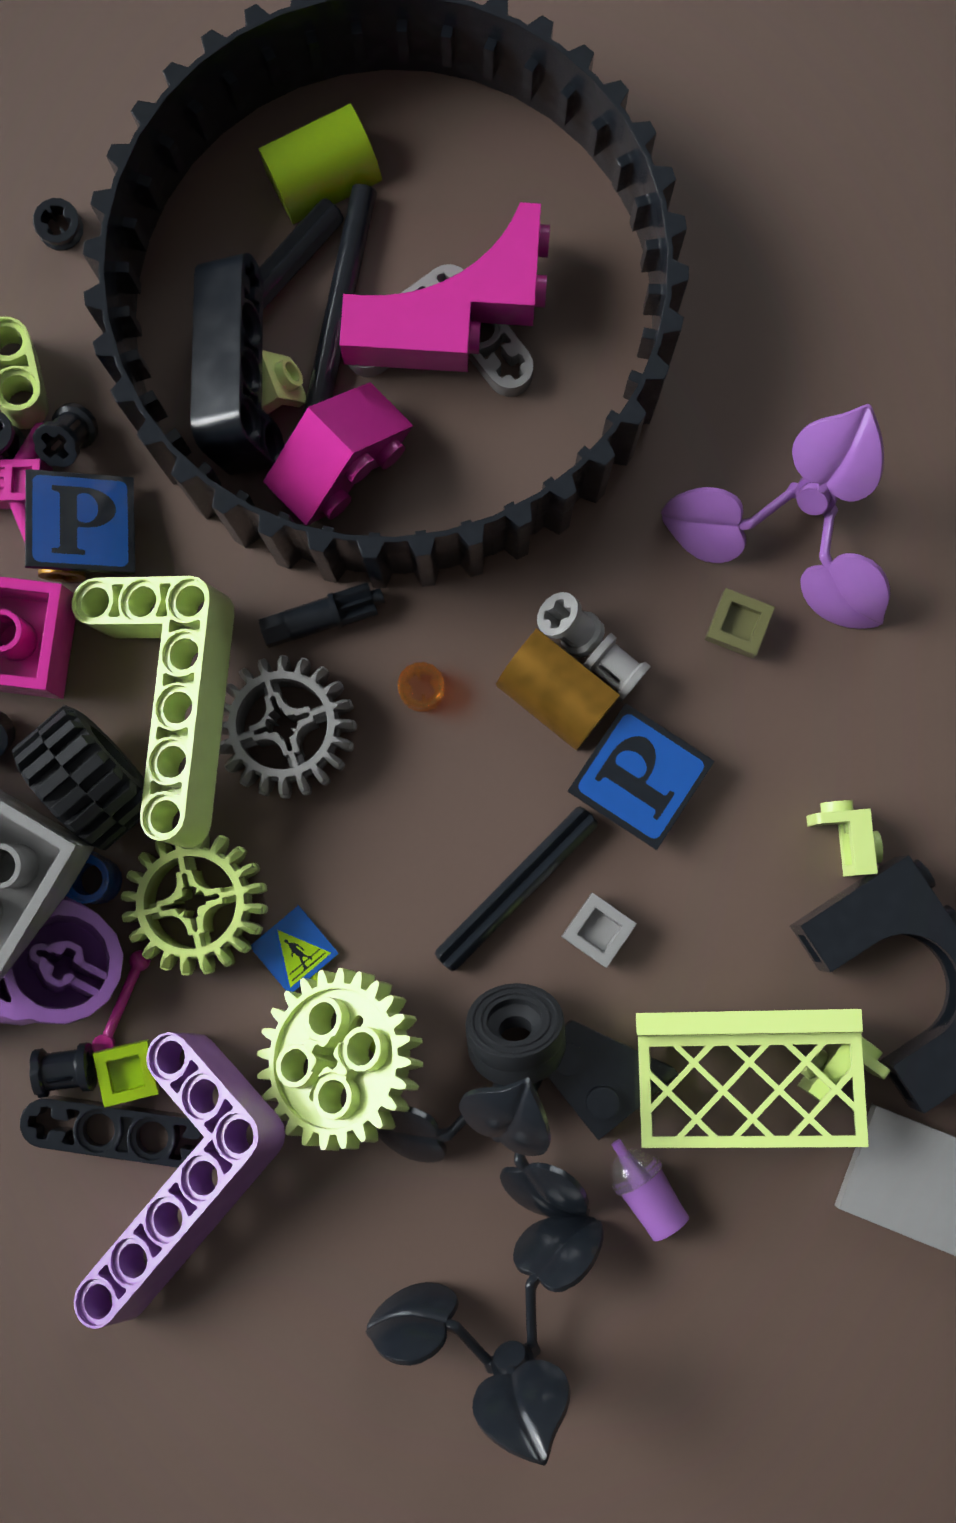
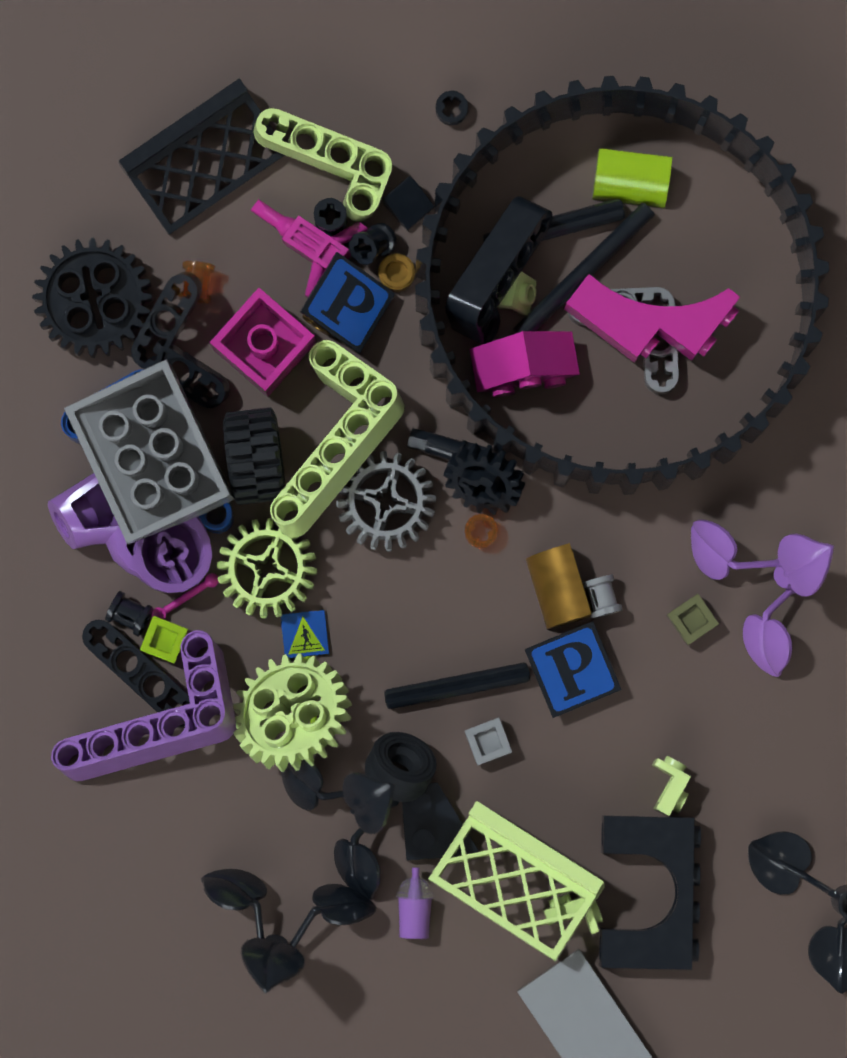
camera: 30 degrees right, 0 degrees up
(74, 365) = (408, 203): none -> black slope
(120, 453) = (396, 272): none -> pearl gold tile
(383, 620) = (484, 479): none -> black gear
(565, 620) = (590, 549): light grey bush -> none

